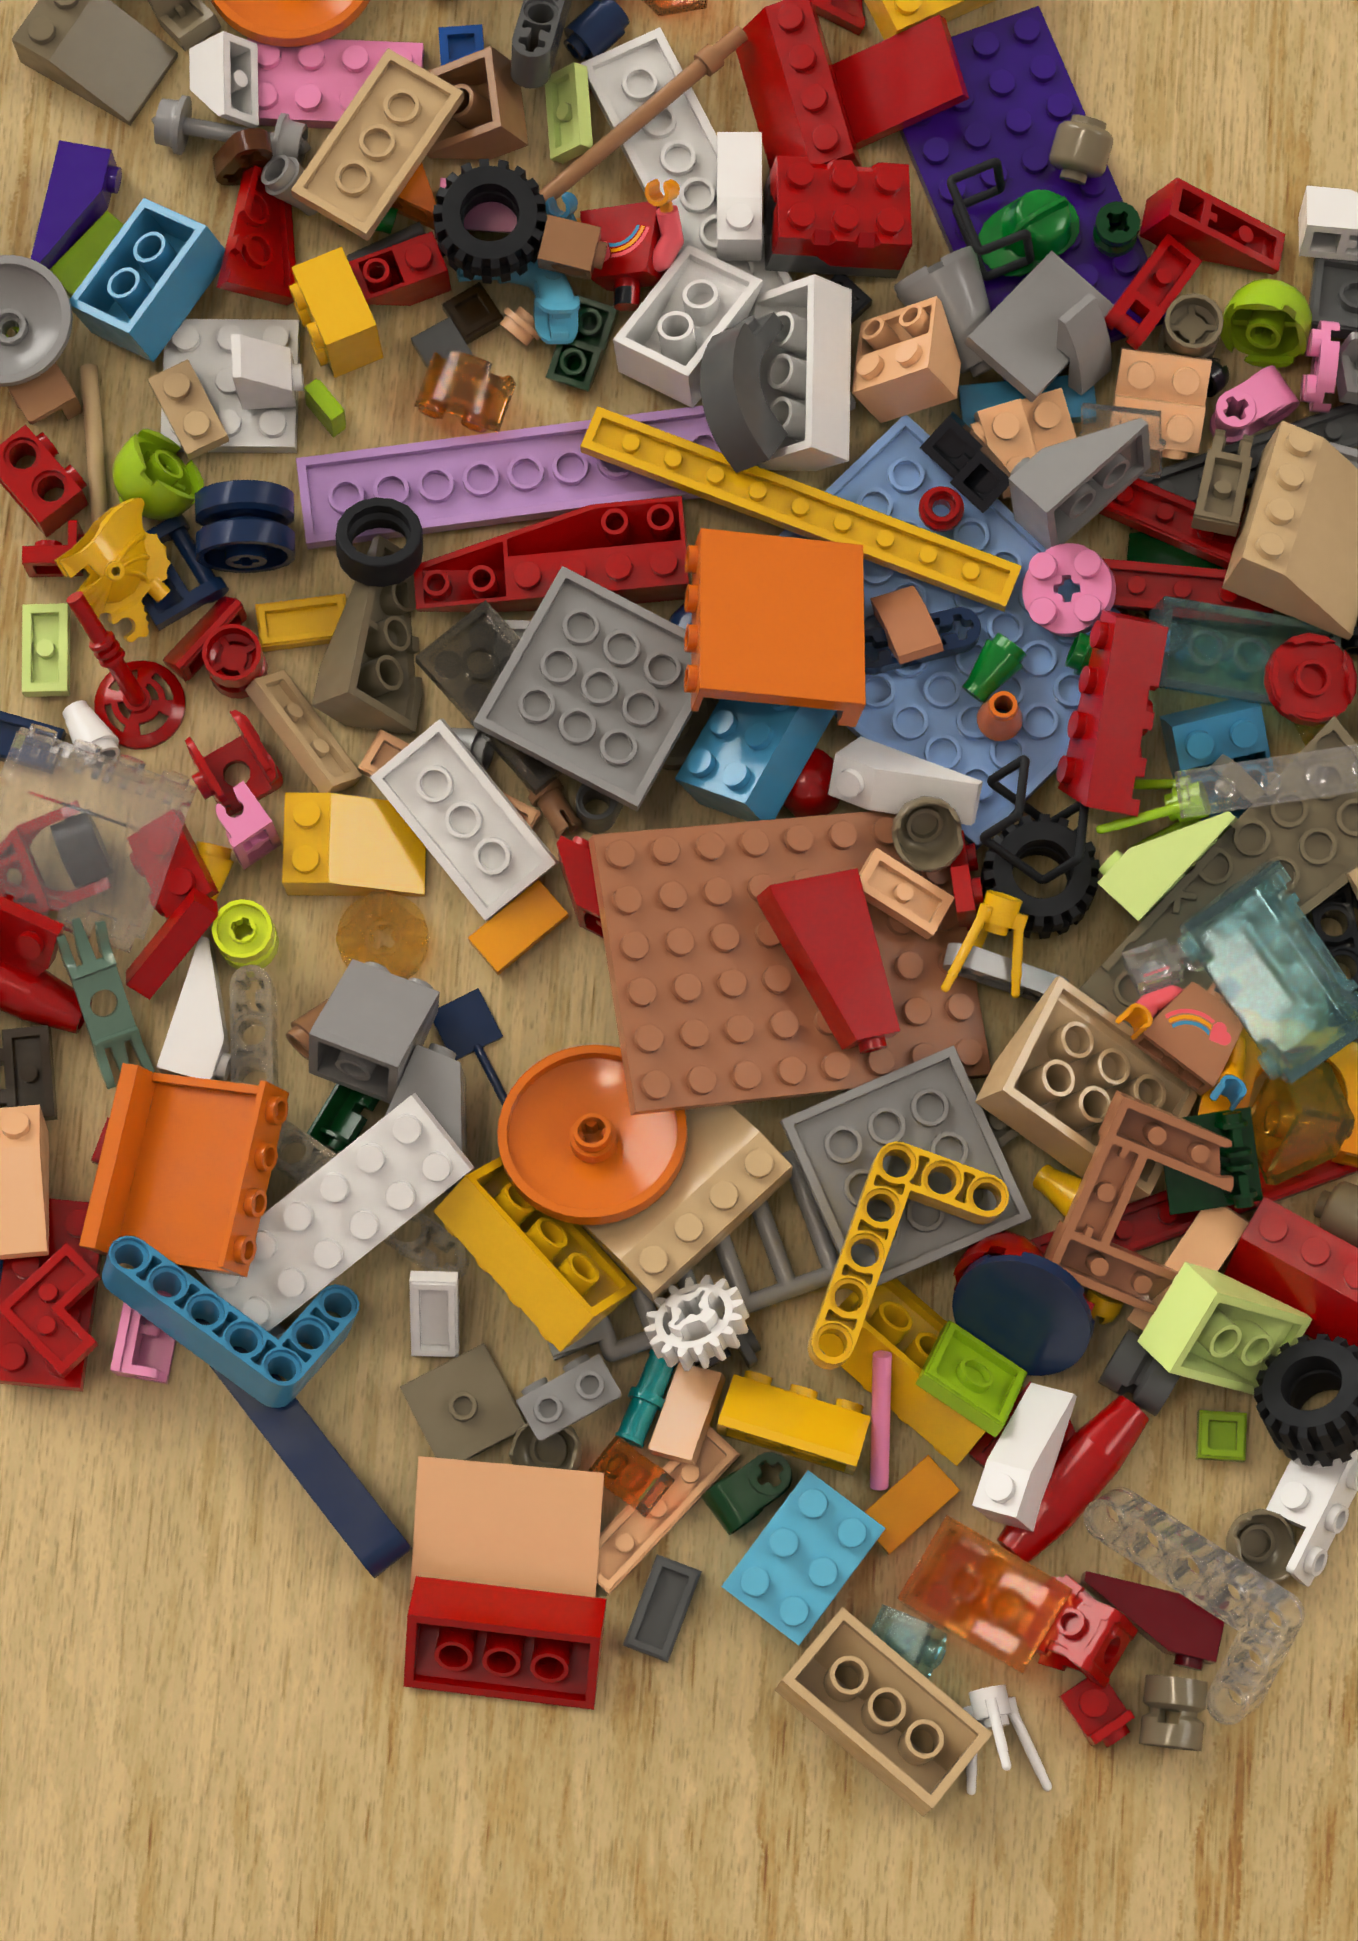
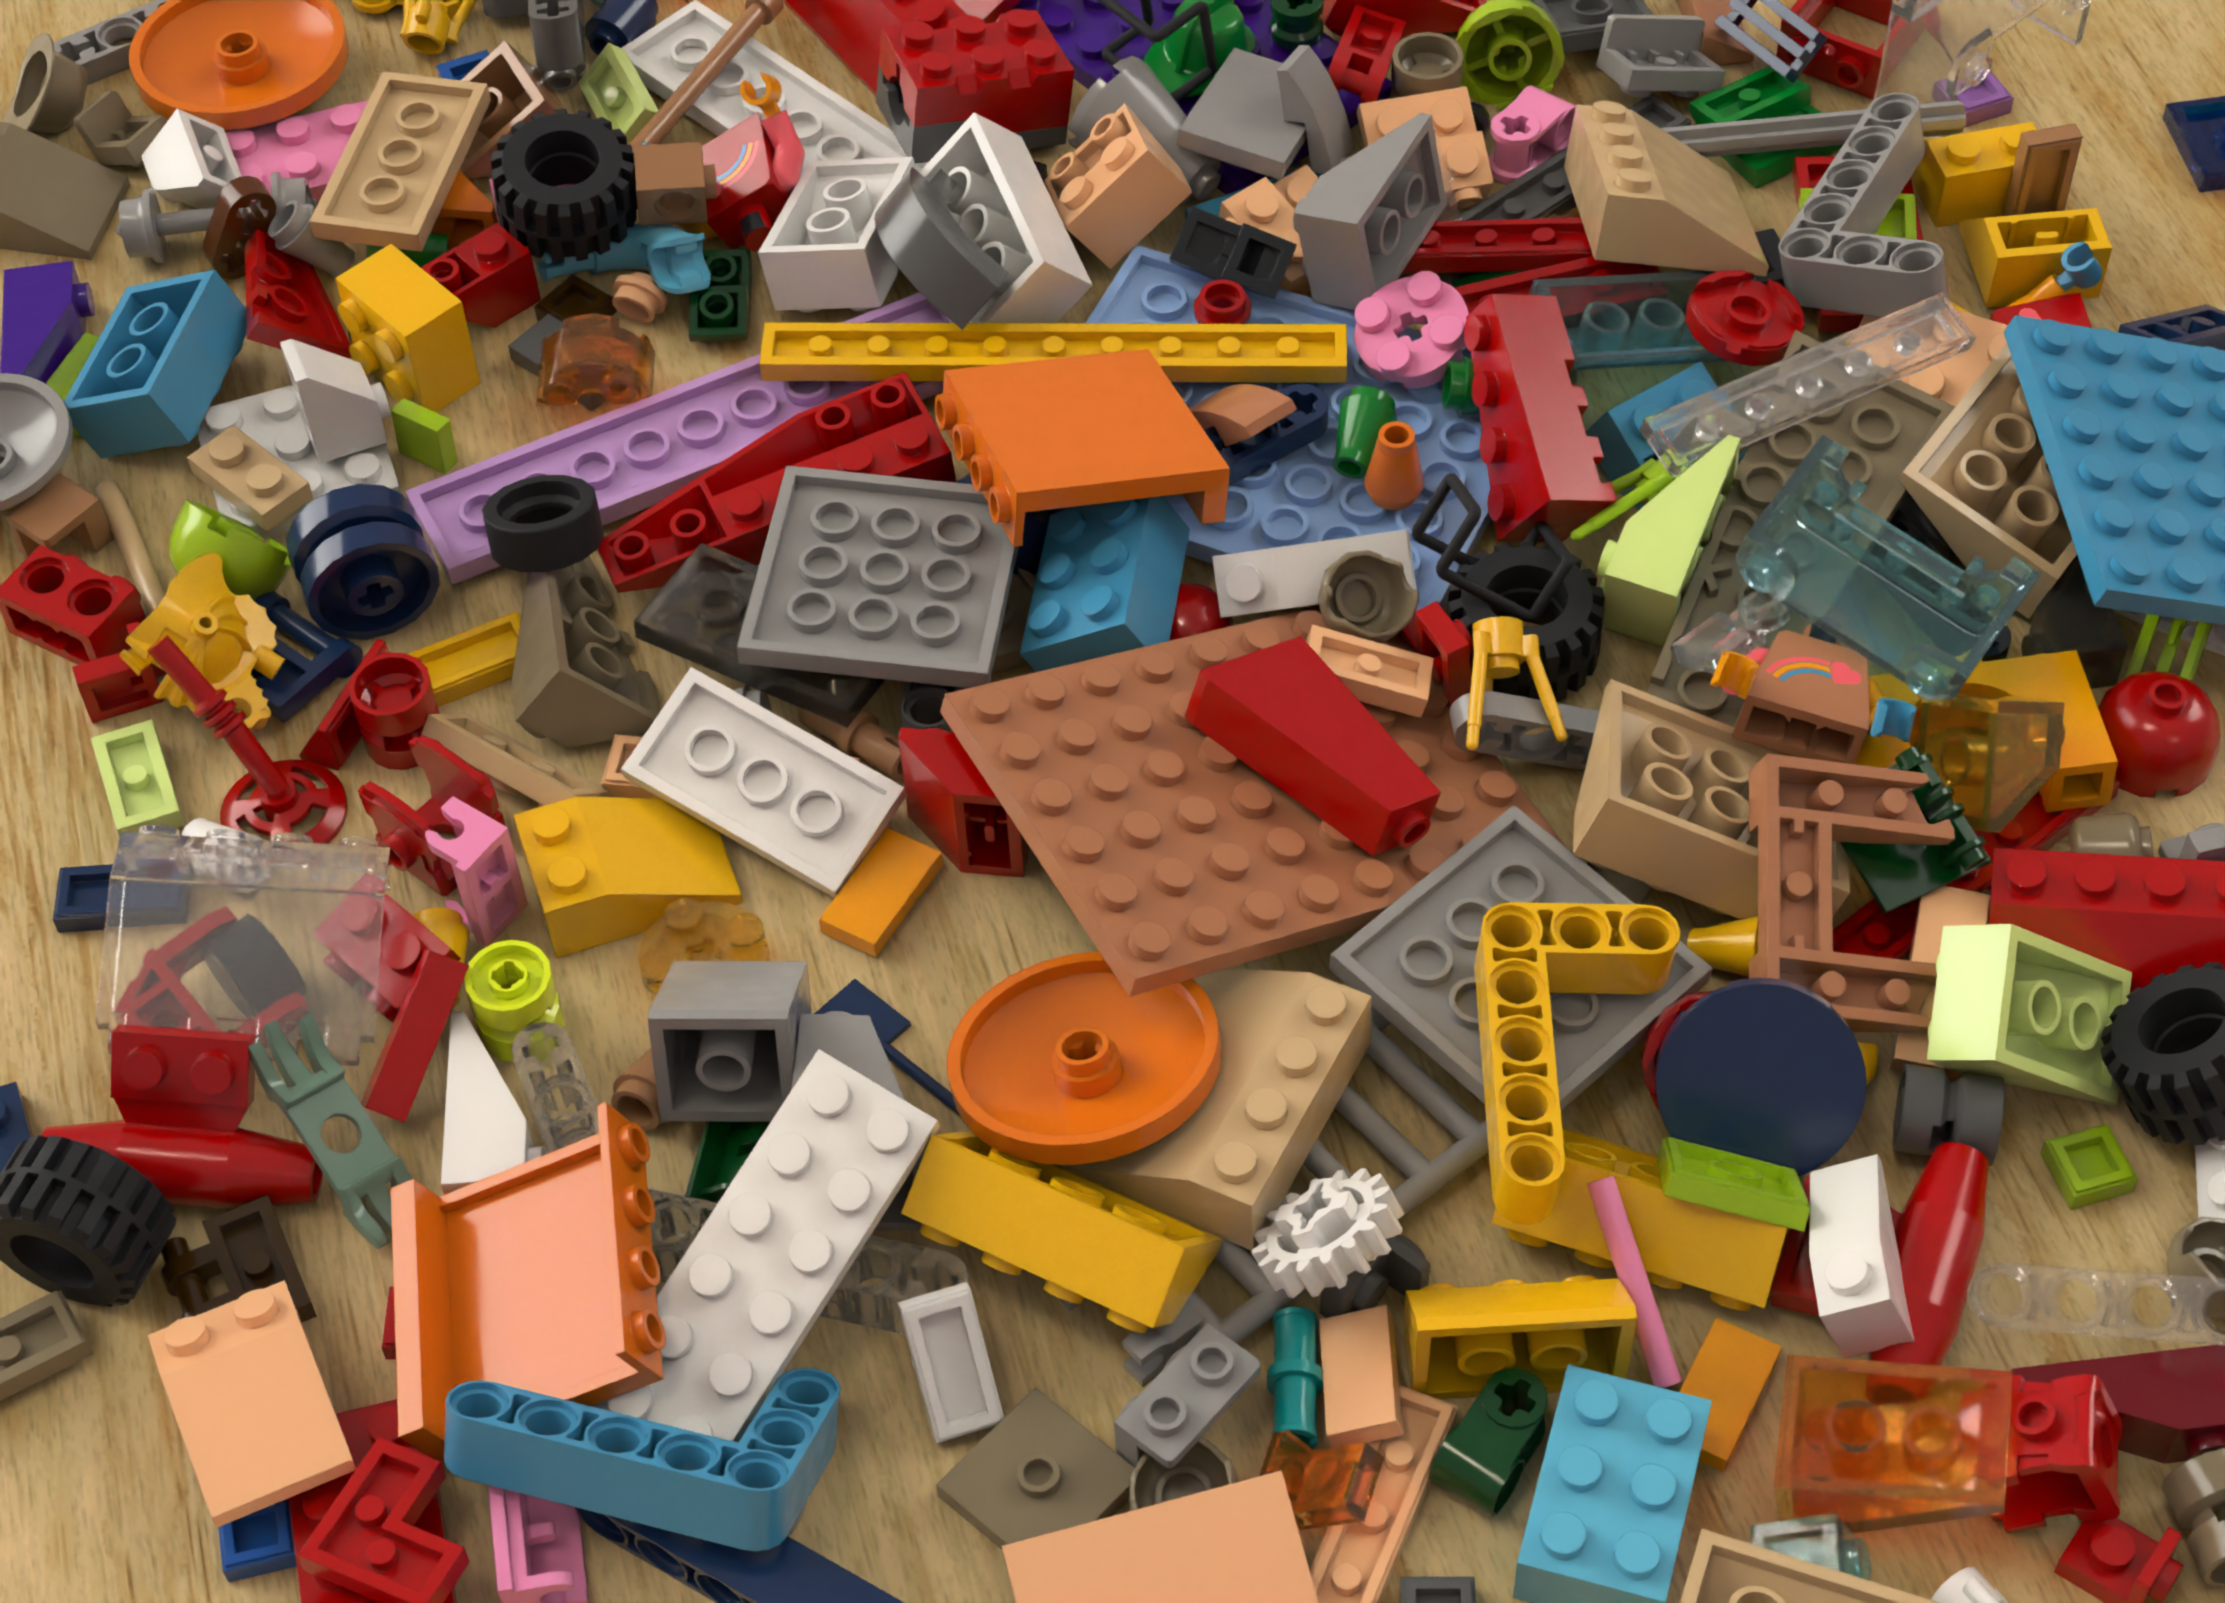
camera: 20 degrees left, 25 degrees down
(739, 196) = (855, 105): white slope -> none
(1223, 486) = (1542, 189): dark tan hinge -> none
(1323, 366) = (1590, 58): bright pink plate -> none

